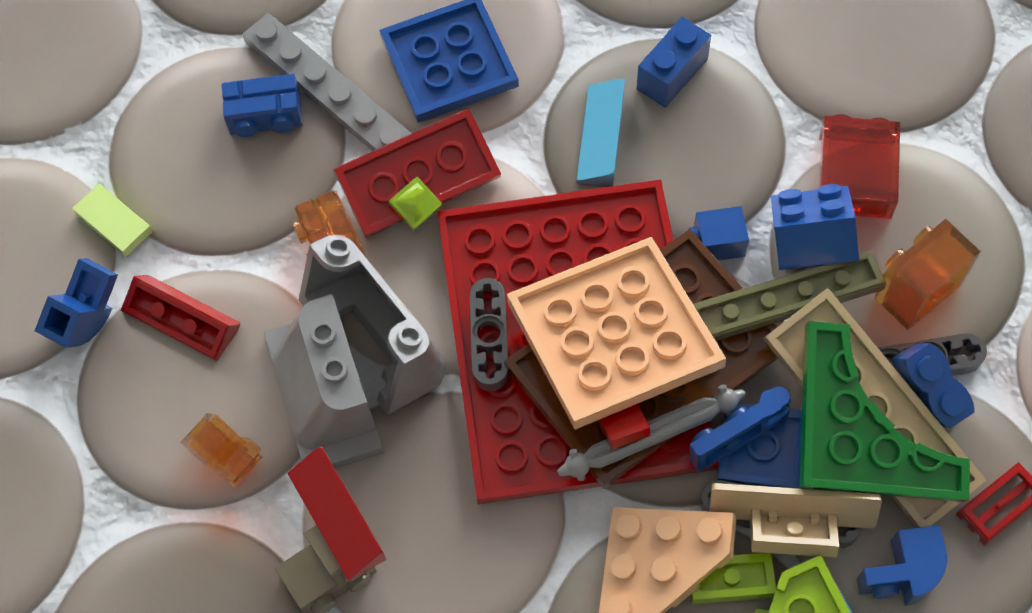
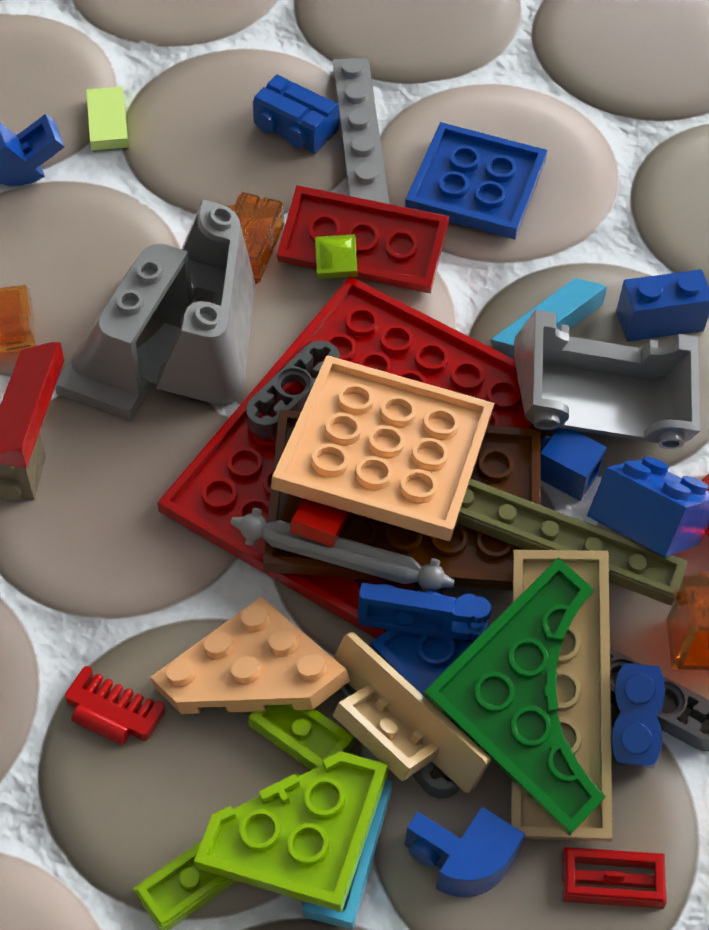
camera: 35 degrees right, 10 degrees down
(179, 316) = (85, 215): red slope -> none
(703, 158) = (608, 386): none -> light grey windscreen

